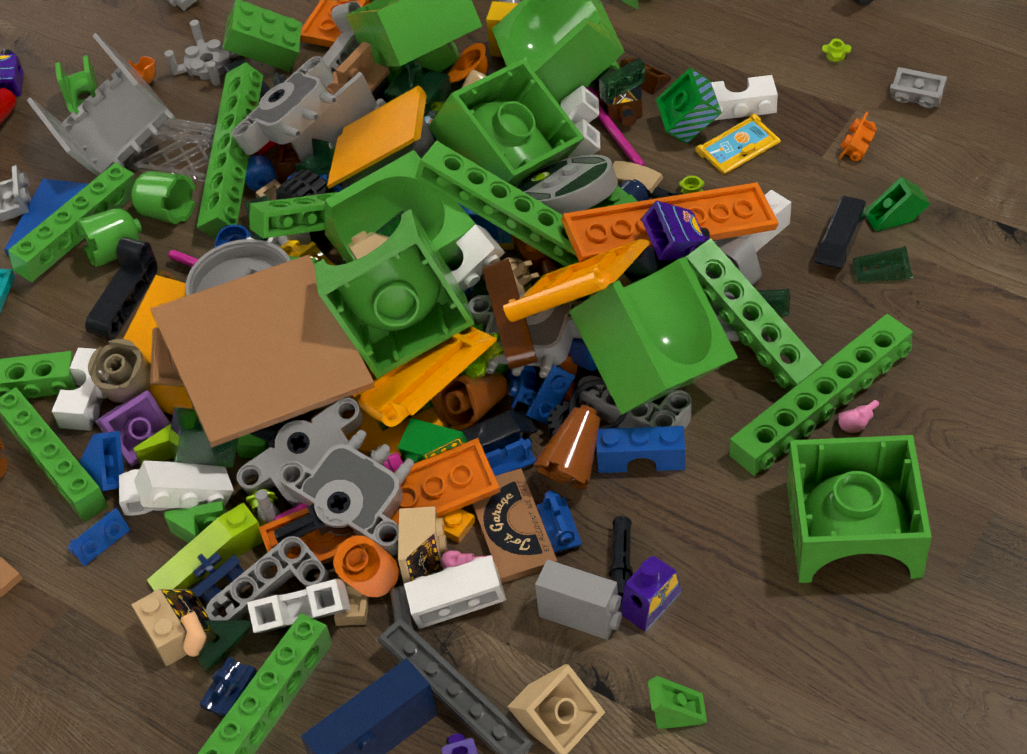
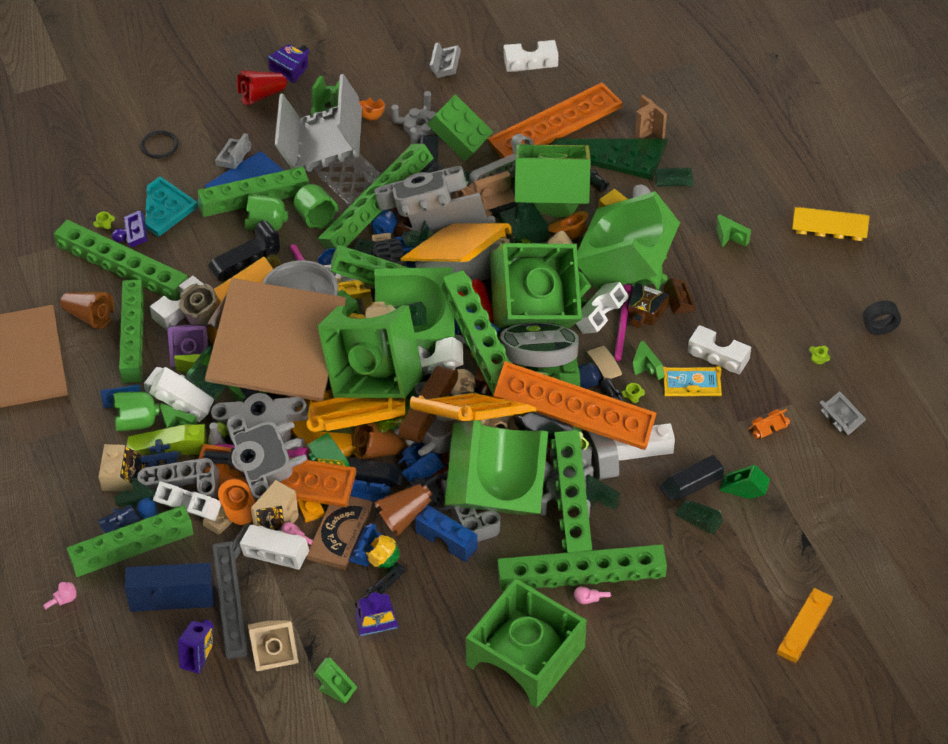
camera: 30 degrees right, 0 degrees up
(104, 460) = (154, 353): blue slope -> none
(133, 543) = (135, 410): none -> bright green cylinder
(195, 635) = (122, 482): light nougat arm -> none
(252, 650) = (147, 508): none -> blue cone
(578, 599) = (331, 592): light grey brick -> none
(592, 514) = (384, 552): none -> yellow piece
(622, 80) = (647, 293): clear green plate -> none
(673, 230) = (561, 412): dark purple torso -> none
(681, 146) = (646, 360): none -> bright green slope
(688, 106) = (676, 336): green container -> none

